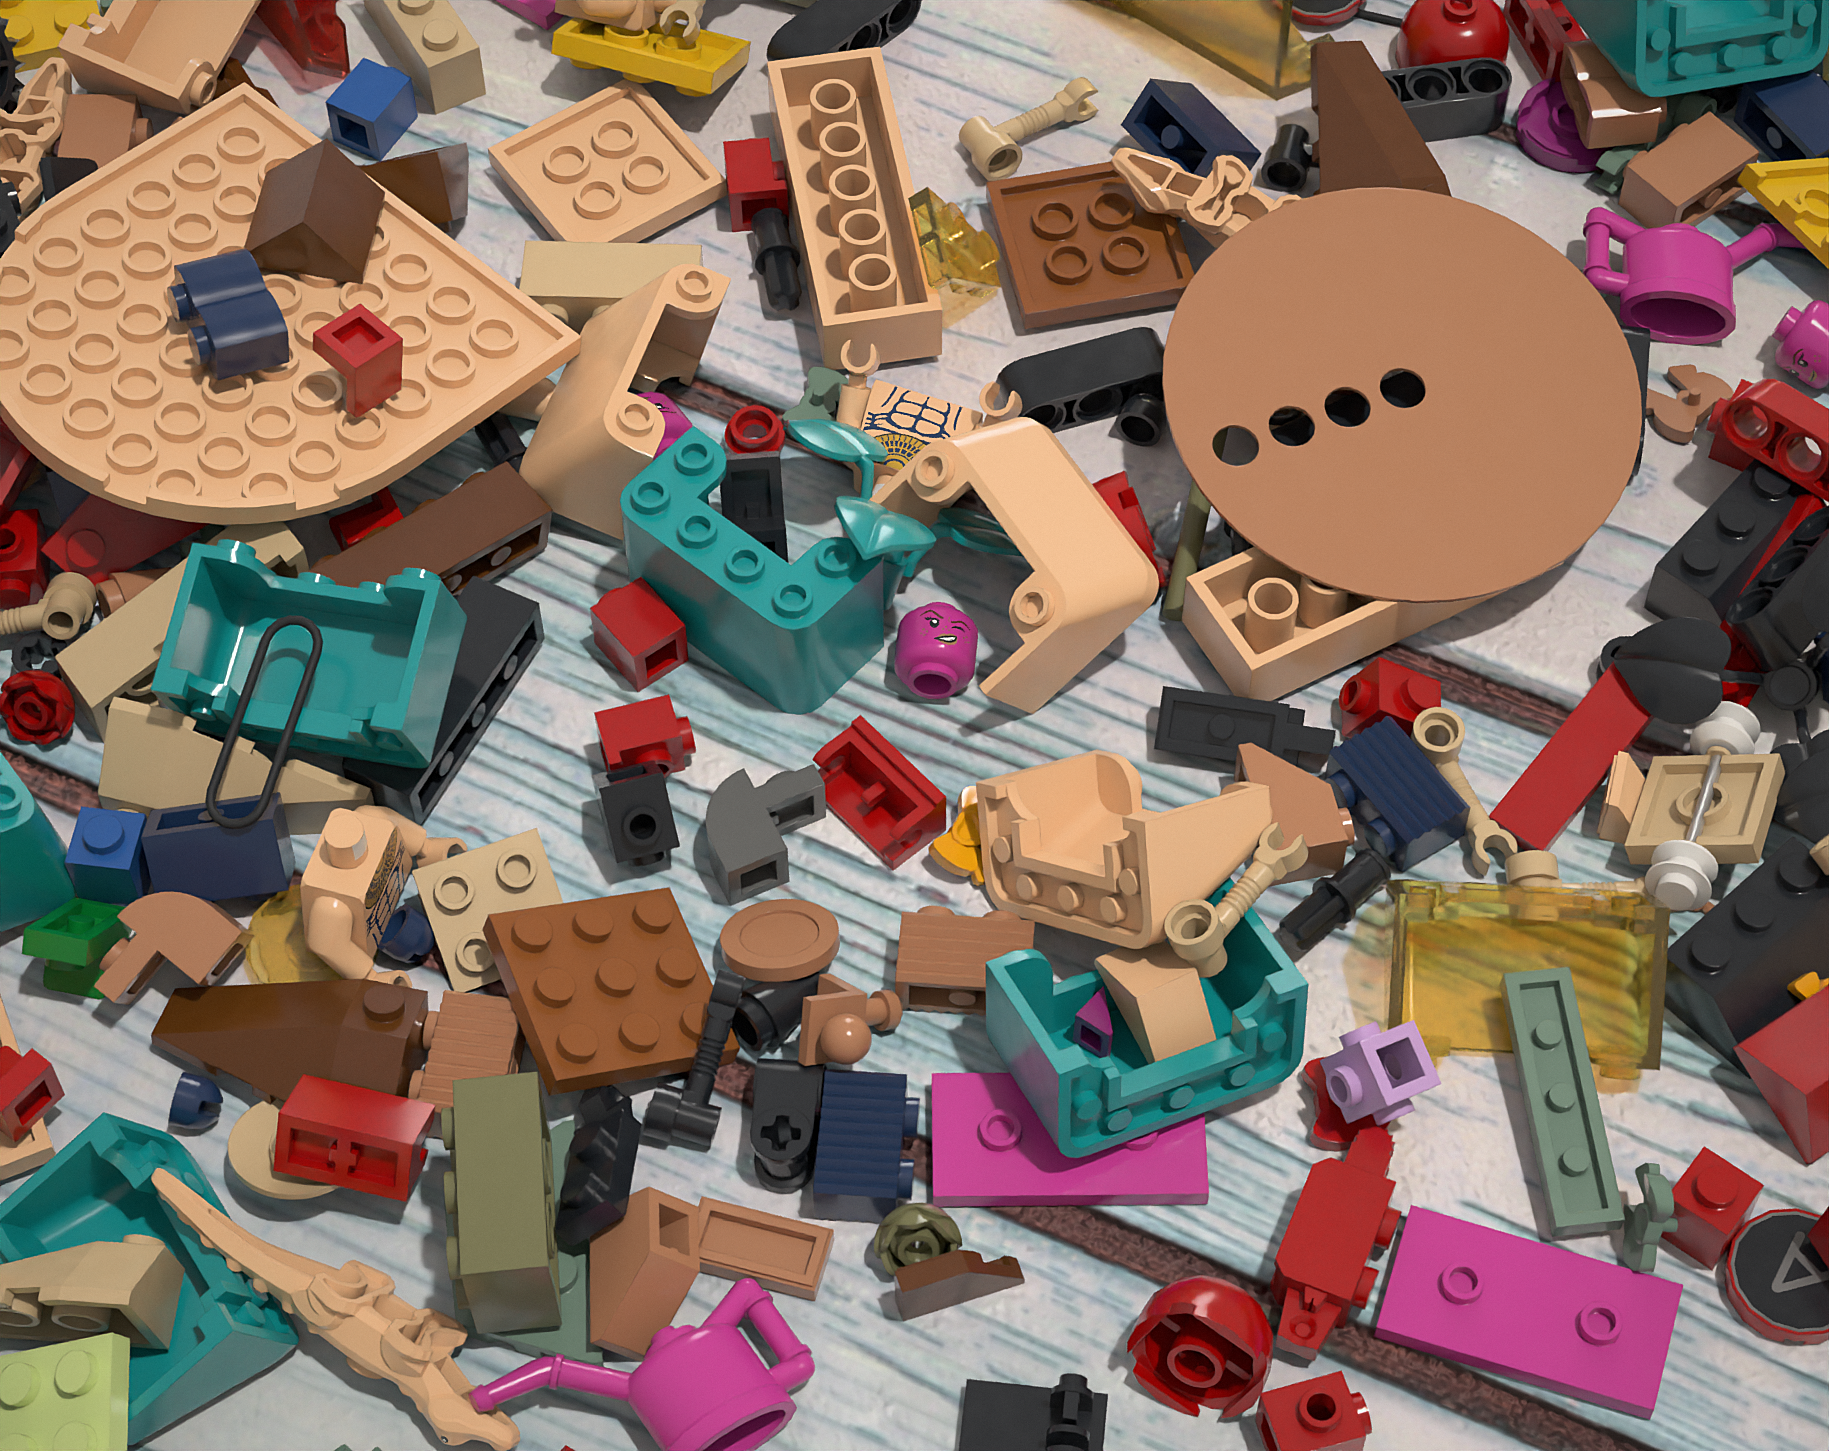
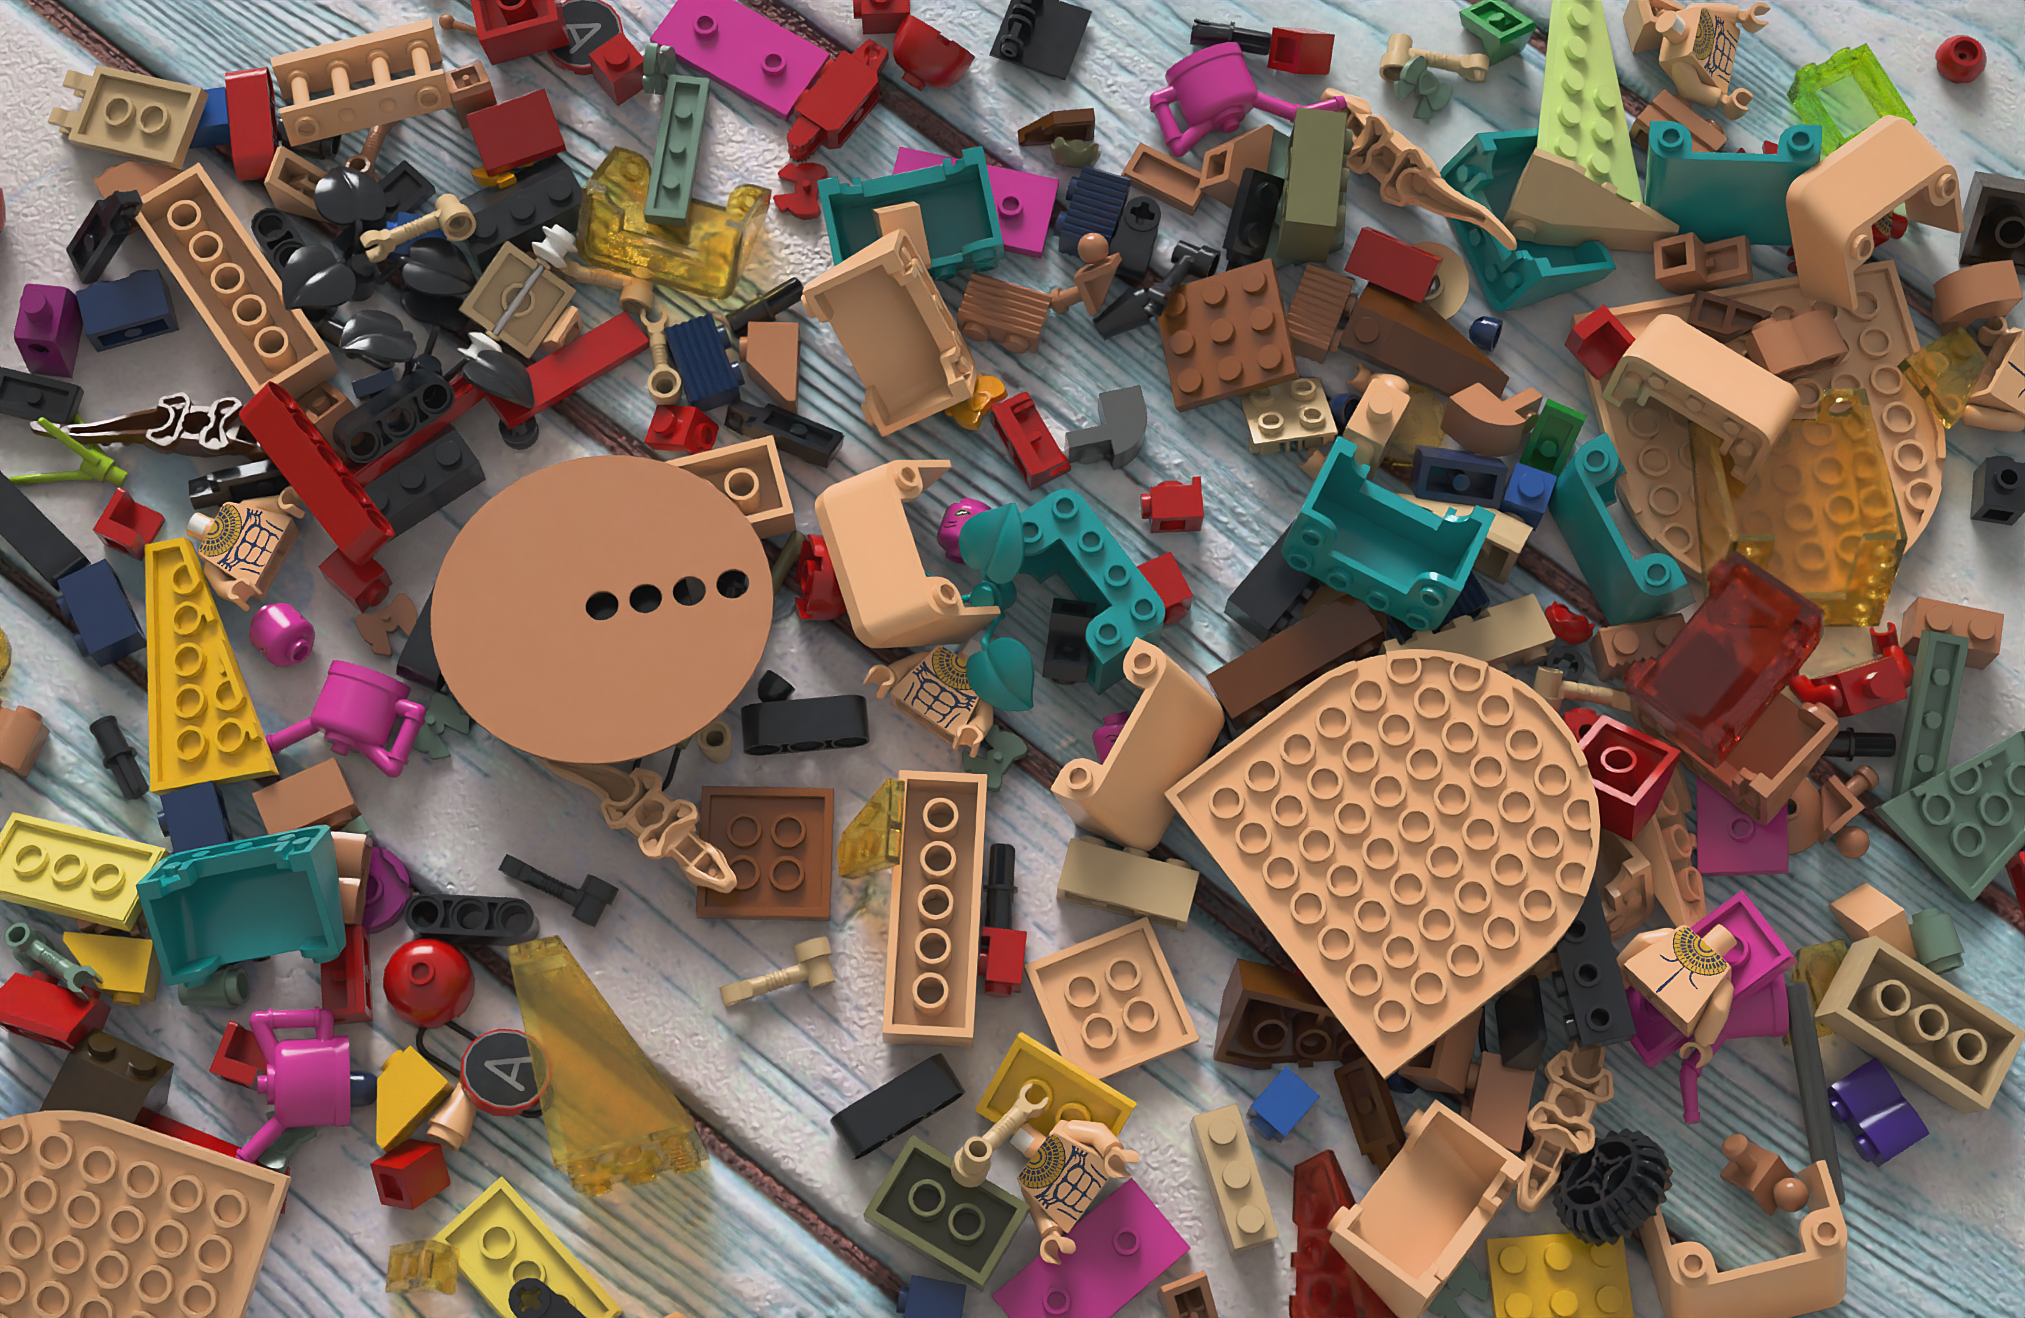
camera: 170 degrees left, 15 degrees up
(229, 314) = (1418, 804): dark blue brick -> none
(288, 730) = (1405, 561): black piece -> none
(316, 216) = (1347, 907): reddish brown slope -> none
(365, 354) = (1329, 745): red panel -> none
(636, 813) = (1188, 447): black brick -> none
(754, 422) = (1053, 728): red plate -> none
(780, 940) = (1114, 353): nougat piece -> none
(1094, 1026) = (939, 243): magenta piece -> none
(1184, 126) = (664, 915): dark blue brick -> none
(1199, 928) = (873, 215): tan brick -> none
(1363, 126) = (542, 832): reddish brown wedge -> none
(1379, 1072) = (786, 171): lavender brick -> none

